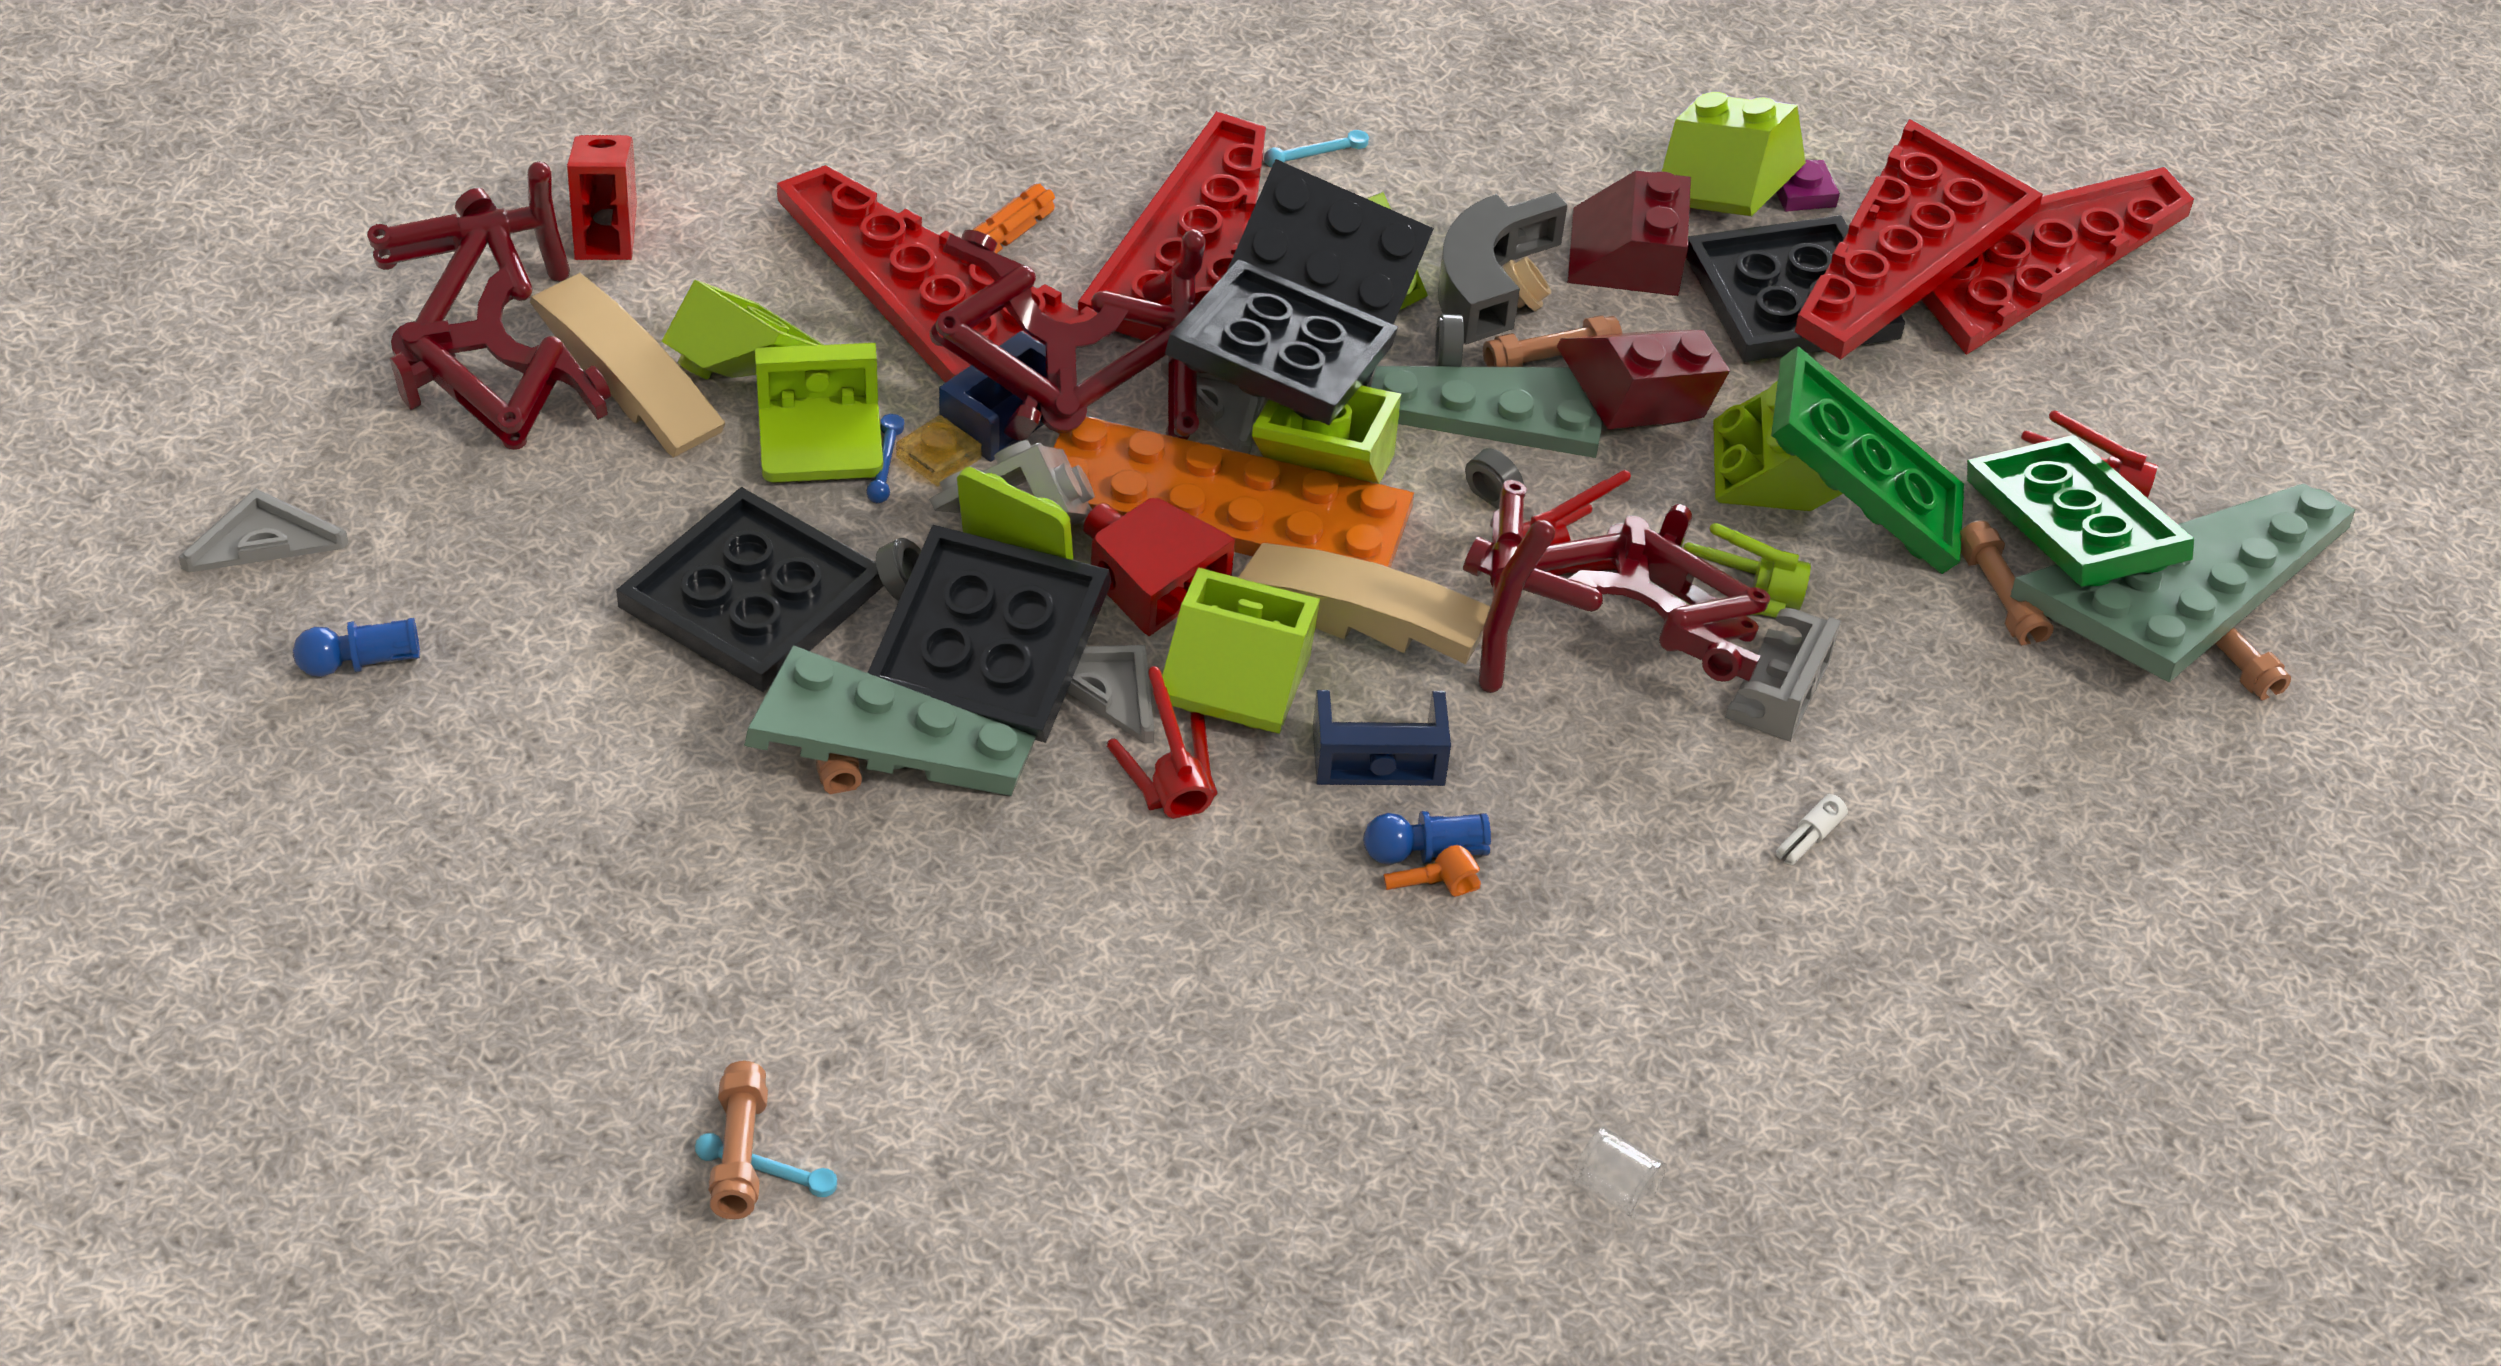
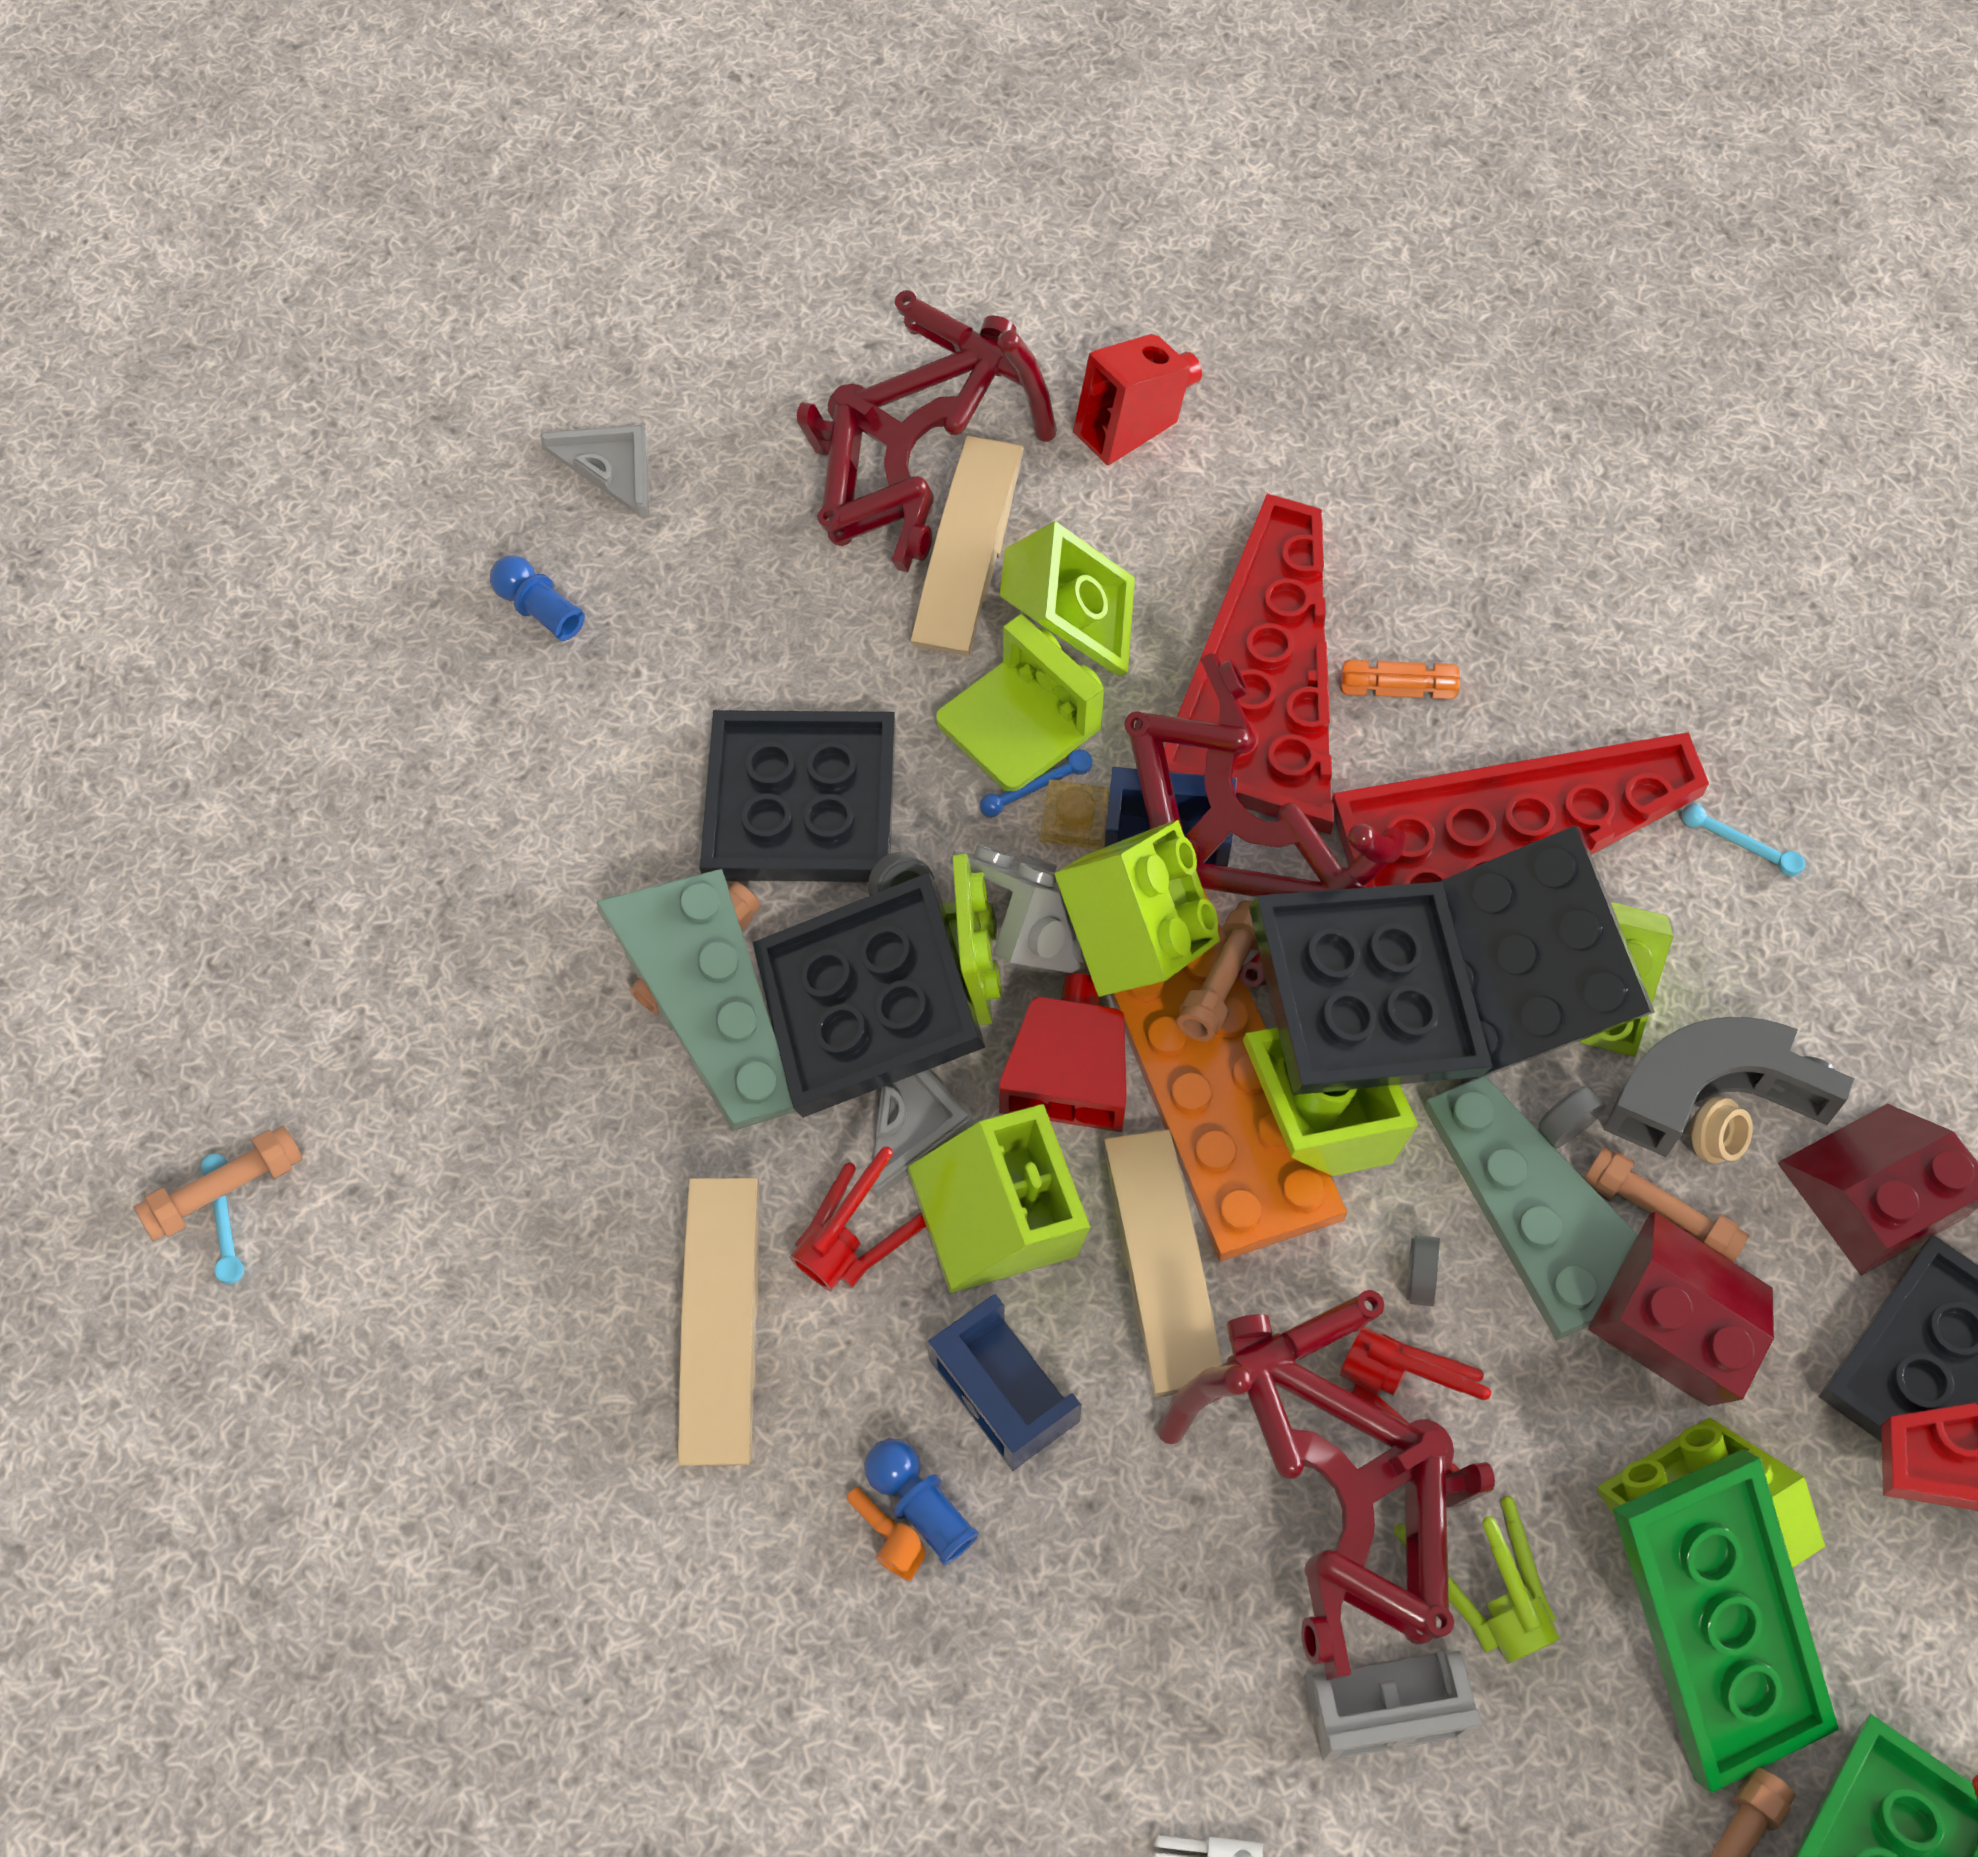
camera: 60 degrees right, 15 degrees up
(1098, 428) = (1139, 909): none -> lime slope
(1182, 867) = (719, 1322): none -> tan slope
(1191, 450) = (1204, 1009): none -> nougat bar

